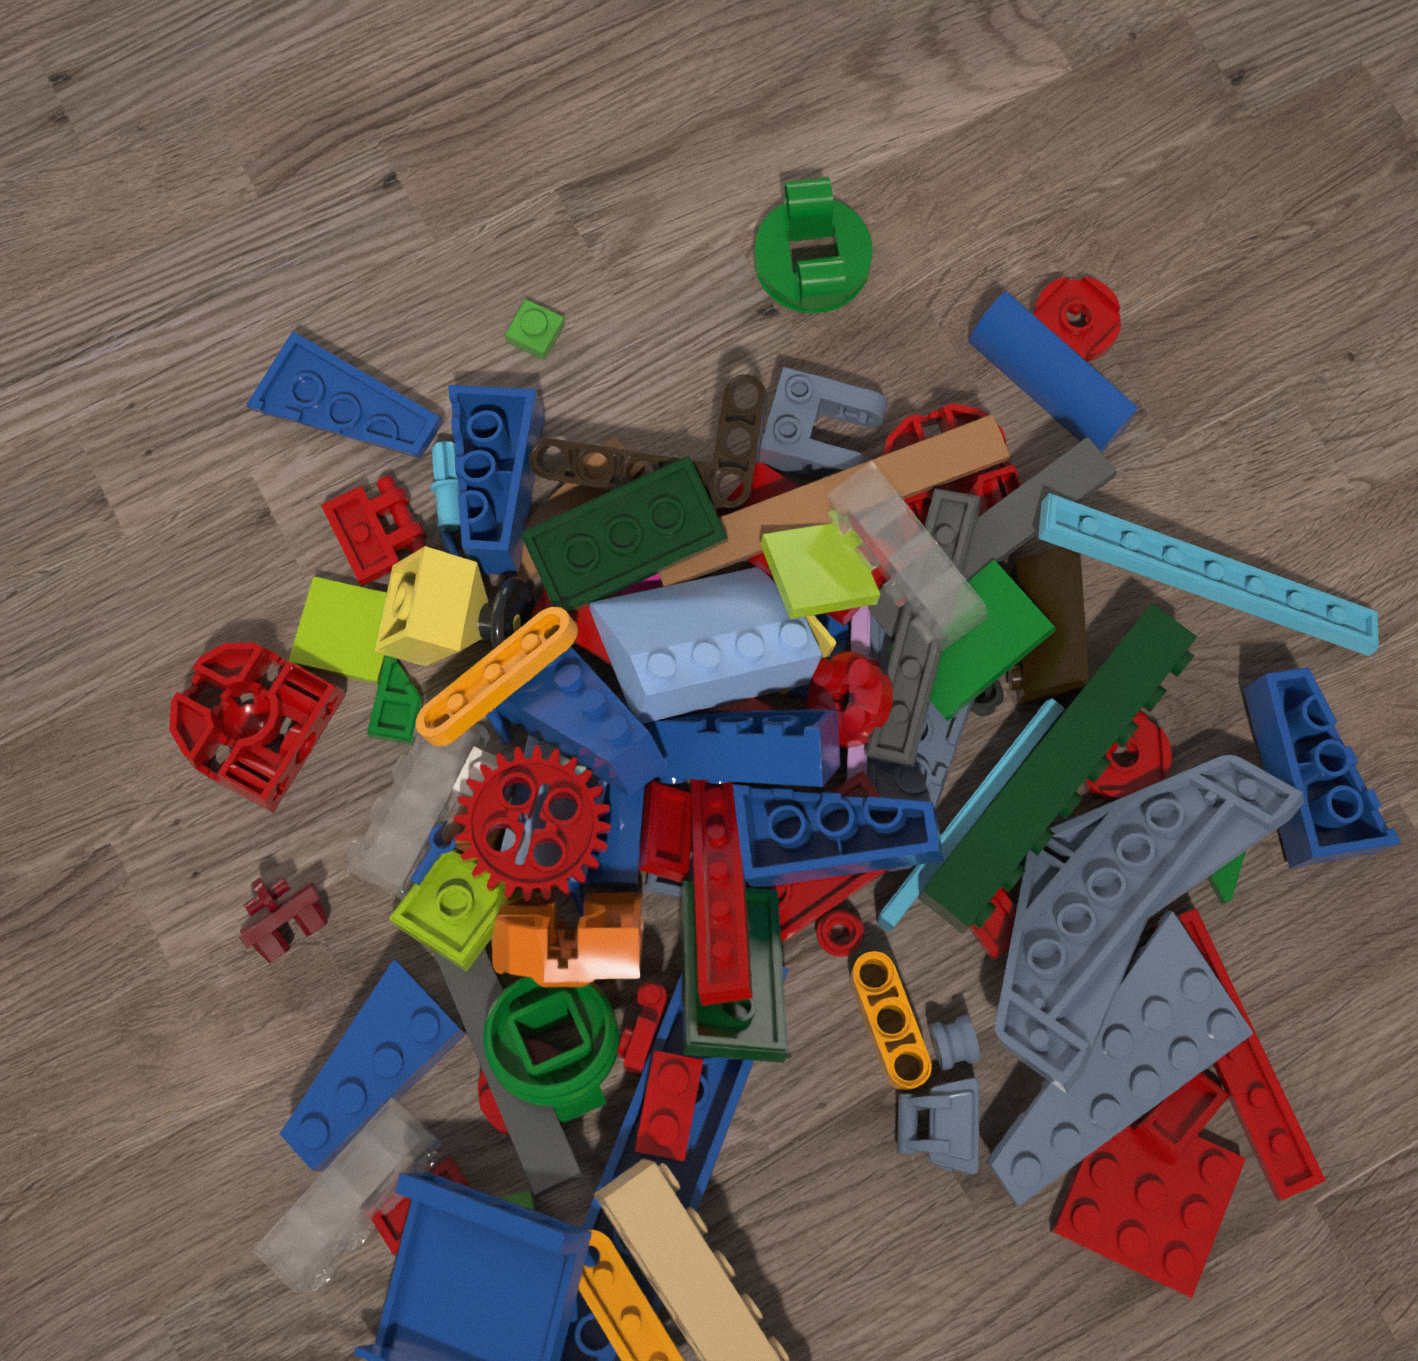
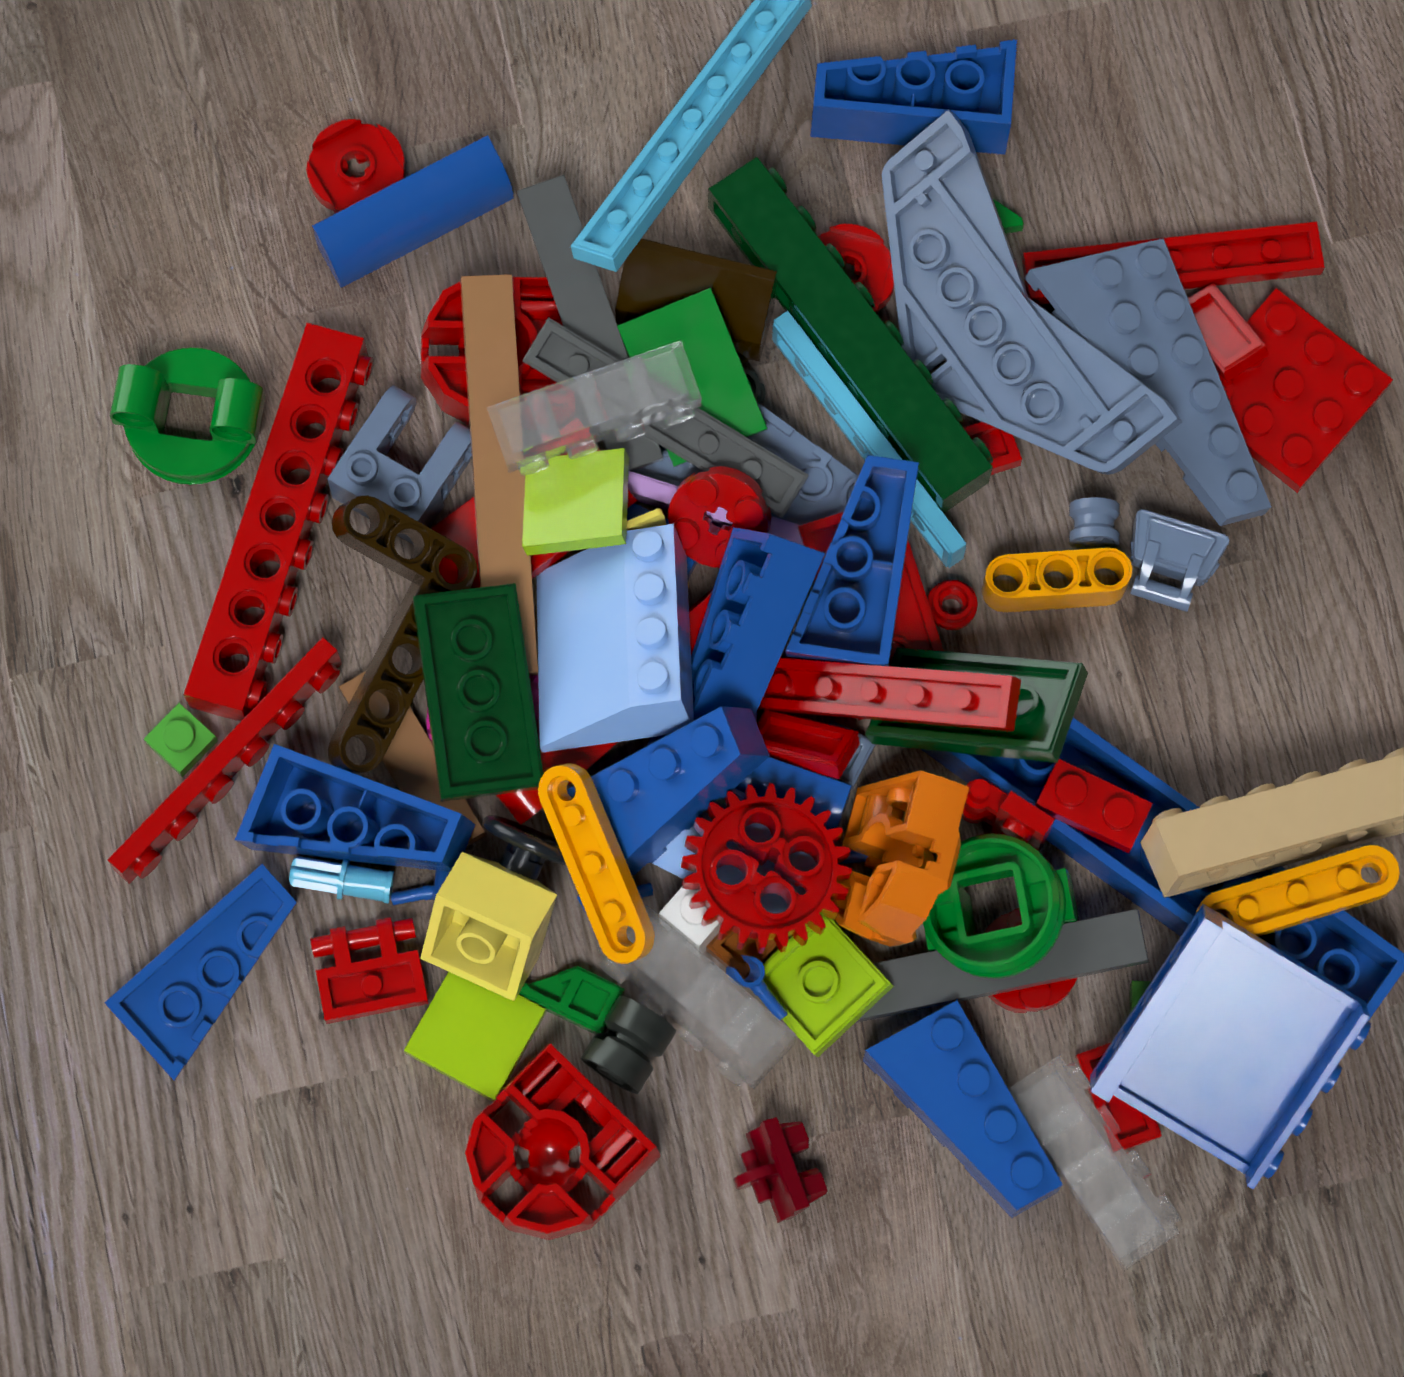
camera: 75 degrees left, 0 degrees up
(353, 755) = (628, 1045): none -> pearl dark grey wheel
(535, 372) = (213, 776): none -> red plate
(722, 331) = (320, 356): none -> red brick

